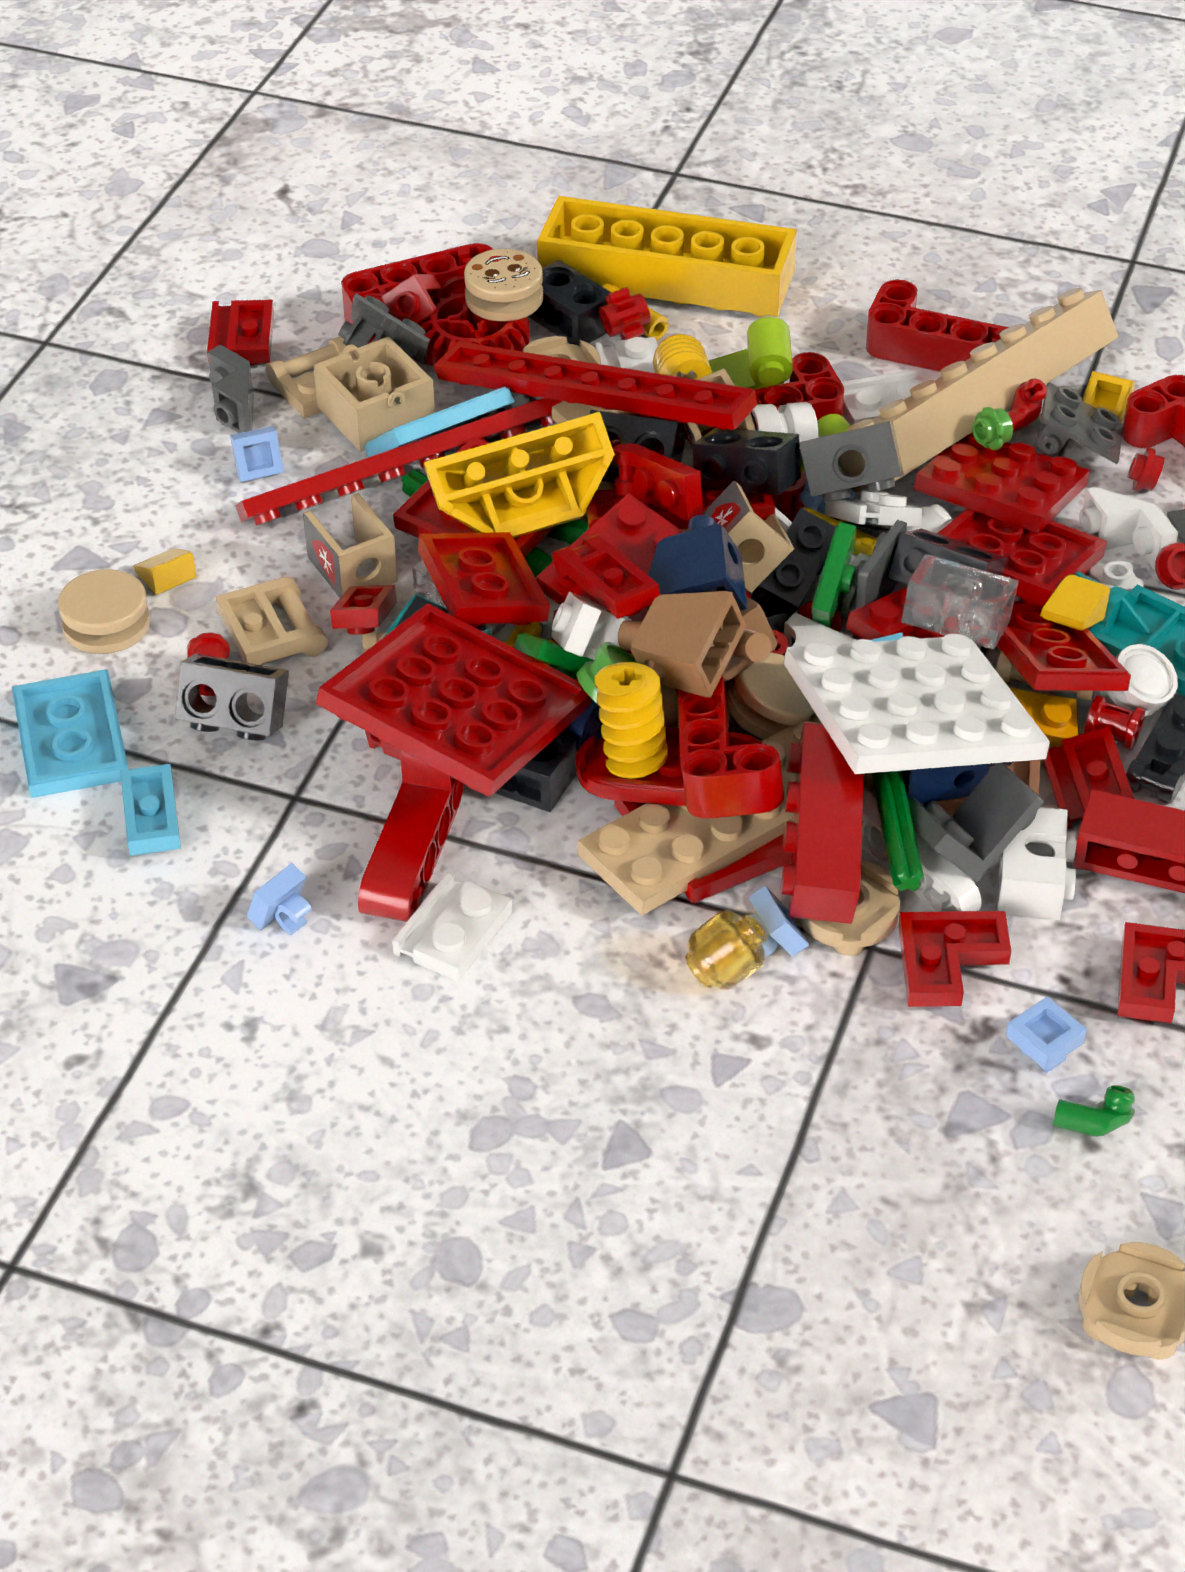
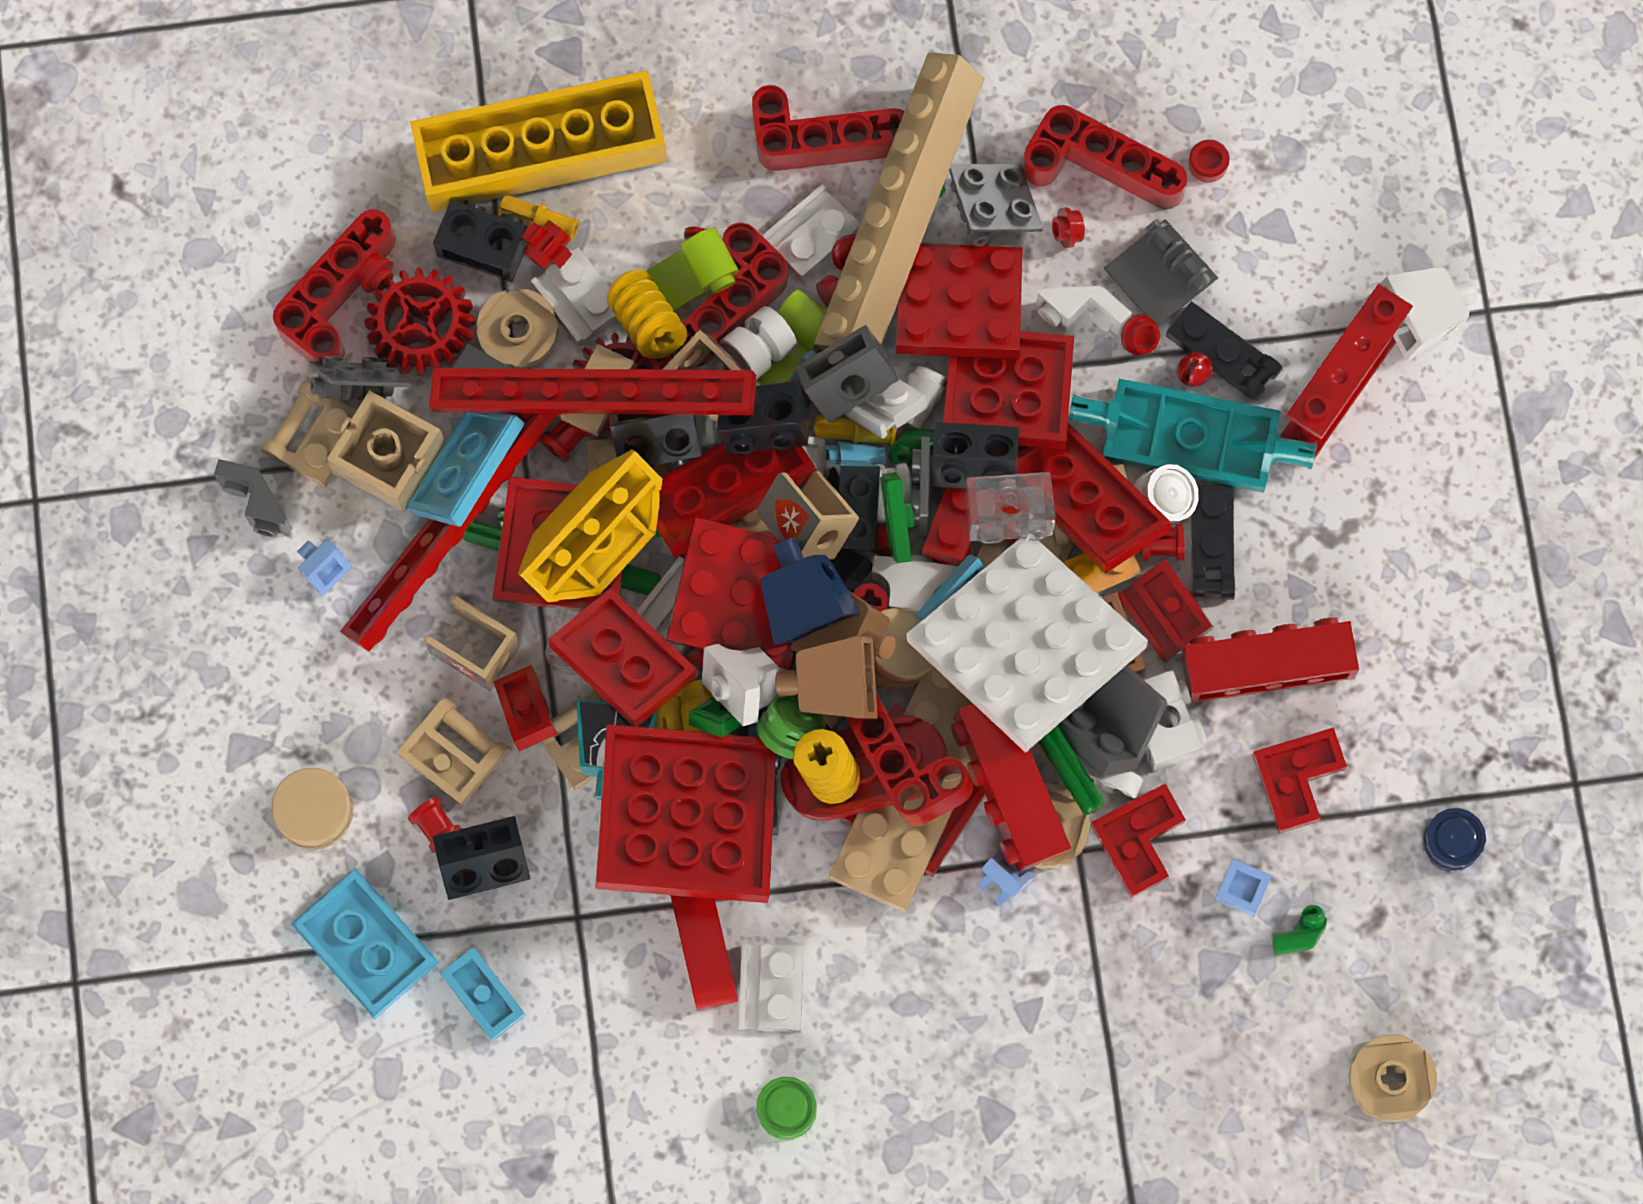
camera: 25 degrees left, 30 degrees up
(167, 570) = (326, 730): yellow slope -> none
(243, 329) = (211, 414): red plate -> none
(280, 901) = (637, 1035): light blue tile -> none
(393, 1029) = (786, 1108): none -> bright green wheel
(413, 298) = (353, 323): red bracket -> none
(503, 284) = (430, 273): tan head -> none
(607, 576) = (738, 637): red plate -> none
(658, 480) = (707, 483): red plate -> none
(726, 950) = (987, 924): clear yellow head -> none
(992, 428) = (932, 257): bright green plate -> none
(1027, 403) = (945, 210): red arm -> none
(1077, 603) = (1088, 441): yellow slope -> none
(1108, 392) = (995, 139): yellow slope -> none
(1116, 574) = (1096, 383): white plate -> none

